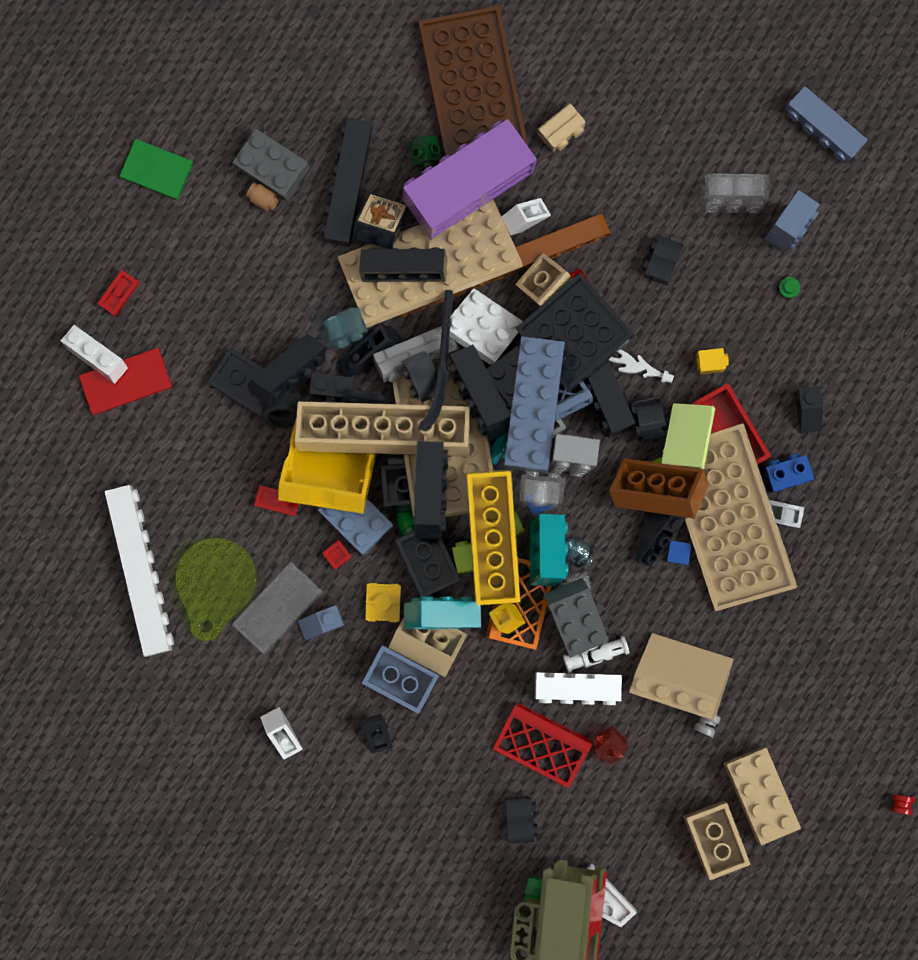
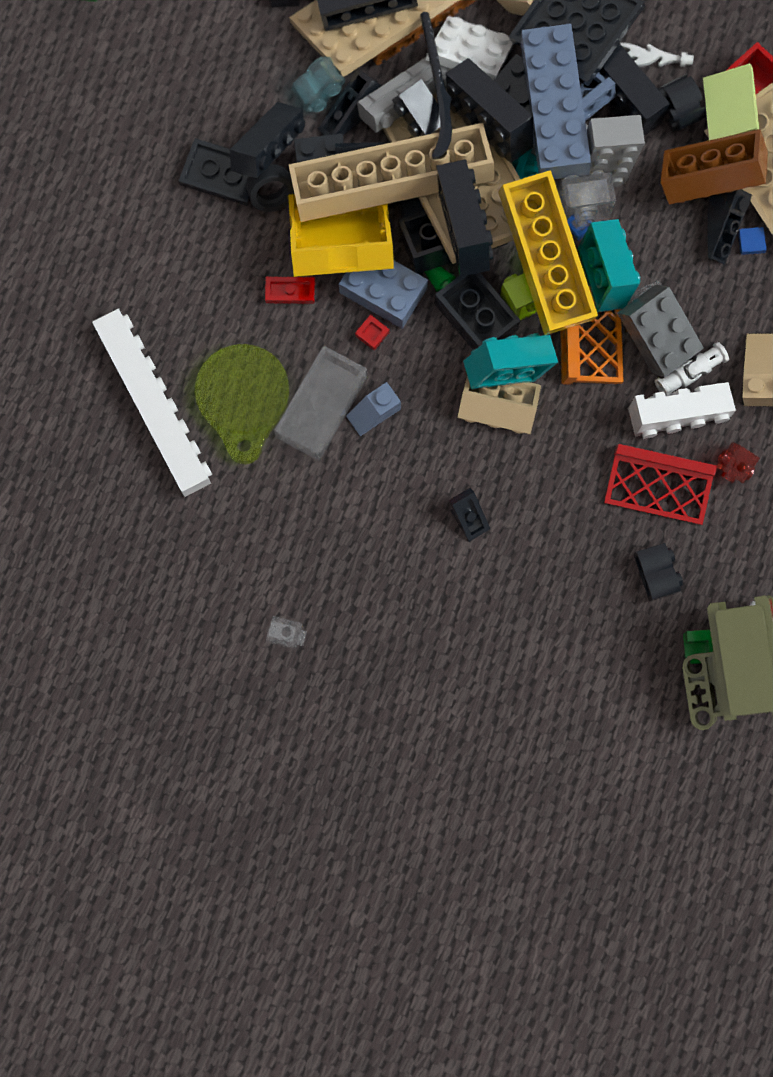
camera: 15 degrees left, 5 degrees down
(94, 354) = (44, 178): white brick -> none
(118, 293) = (55, 111): red plate -> none
(143, 378) = (86, 203): red tile -> none
(201, 795) = (286, 633): none -> clear brick
(281, 733) = (360, 542): white slope -> none
(383, 602) = (437, 371): yellow piece -> none
(400, 679) = (481, 447): sand blue brick -> none
(507, 617) = (583, 349): yellow panel -> none
(579, 552) = (645, 263): clear light blue head -> none
(711, 361) = (729, 30): yellow brick -> none

